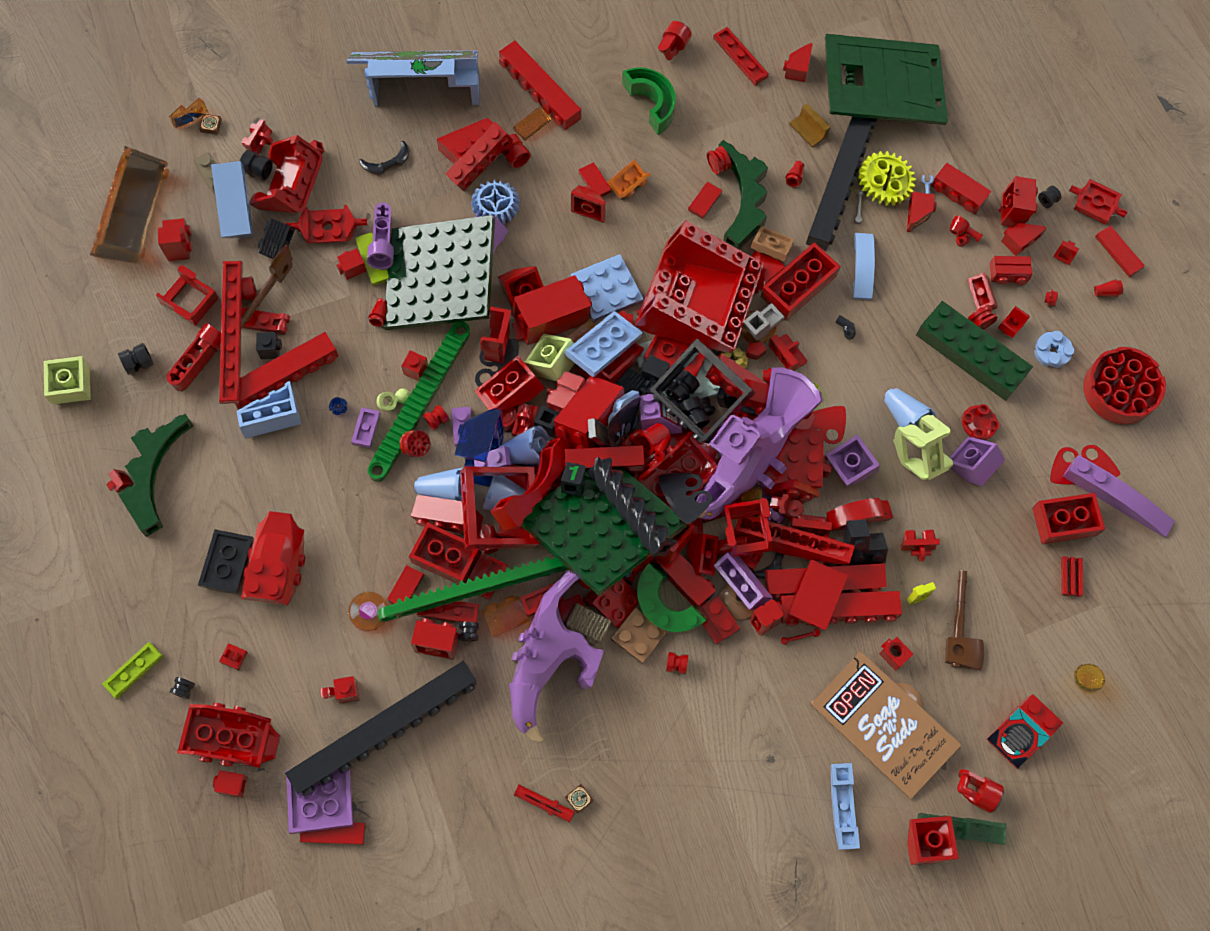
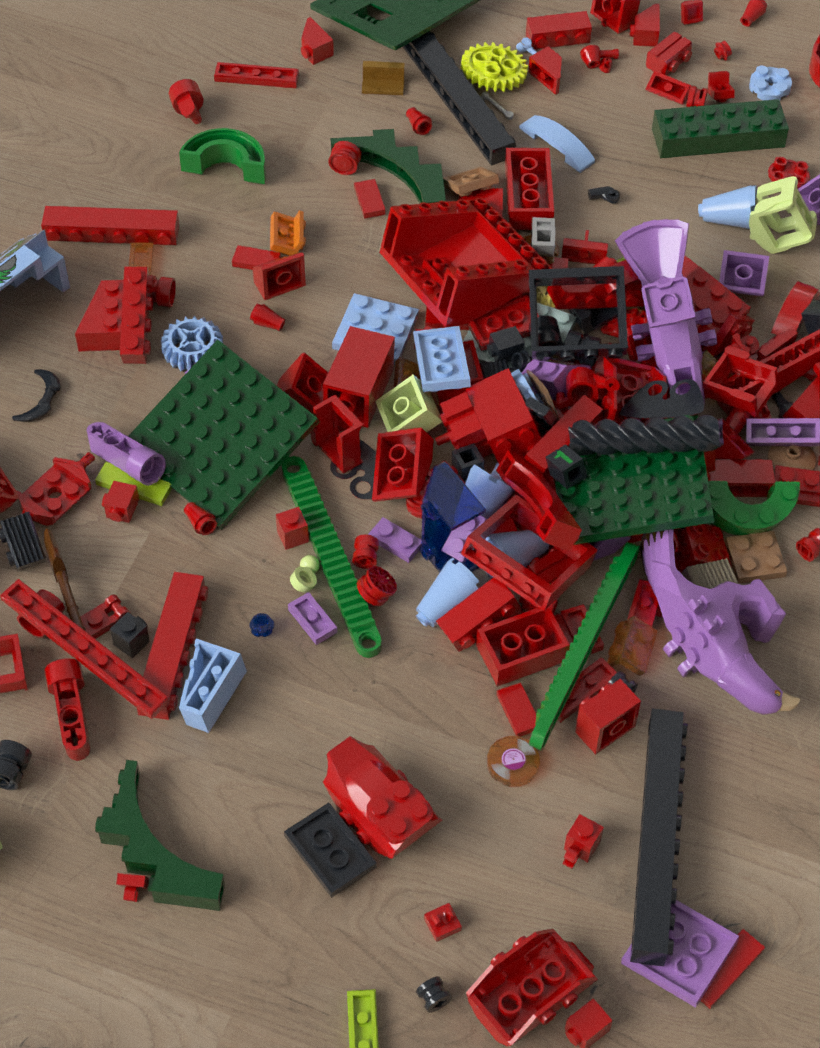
camera: 45 degrees left, 15 degrees down
(554, 223) = (266, 317): none -> red cone

